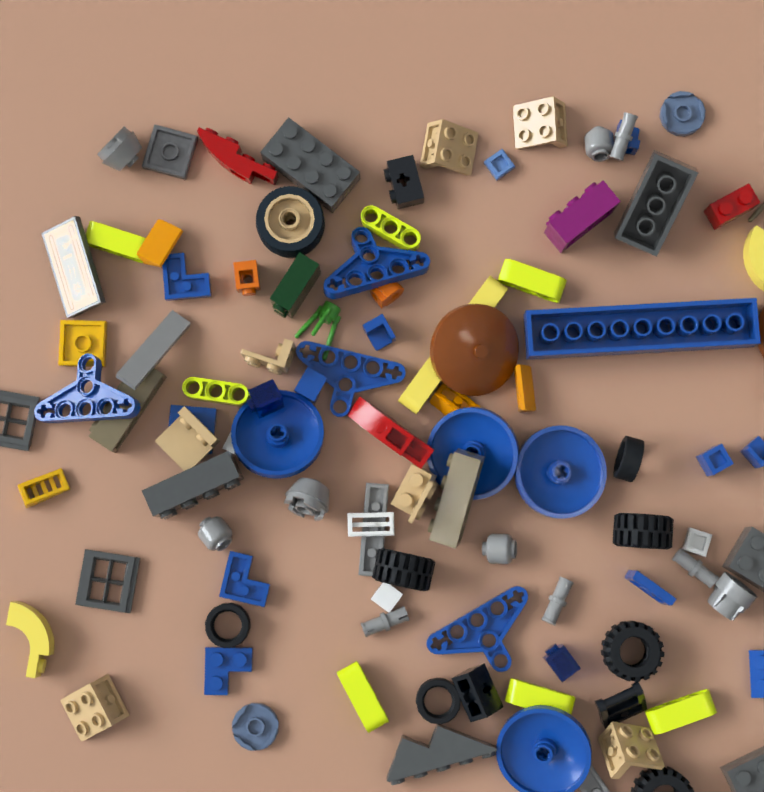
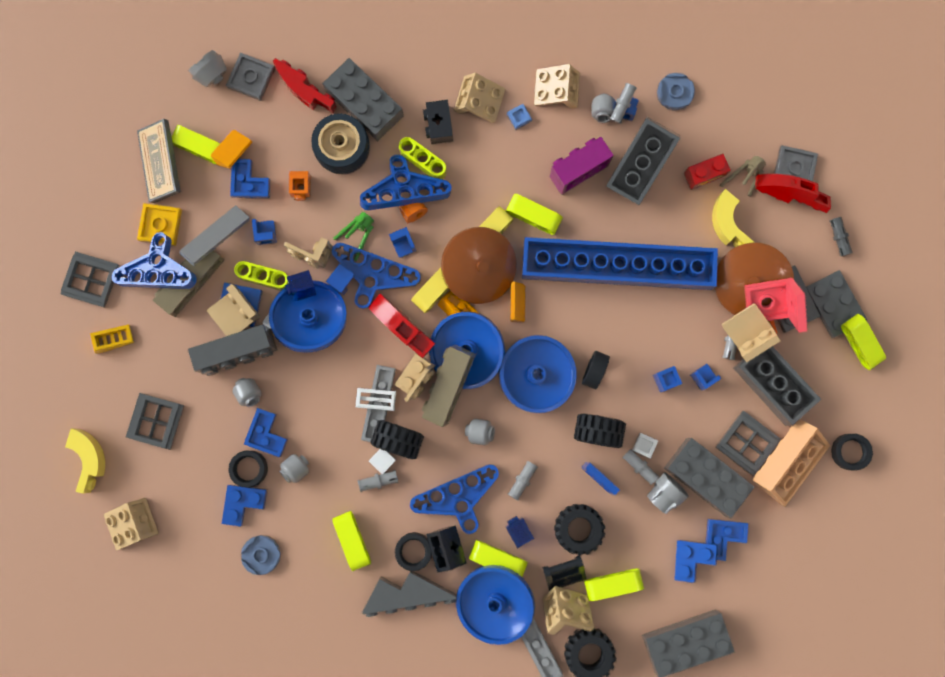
camera: 10 degrees right, 0 degrees up
(211, 338) = (264, 232): none -> blue panel
(283, 618) = (294, 468): none -> light grey head
(295, 286) = (337, 196): dark green brick -> none
(308, 498) = (326, 371): light grey cone -> none

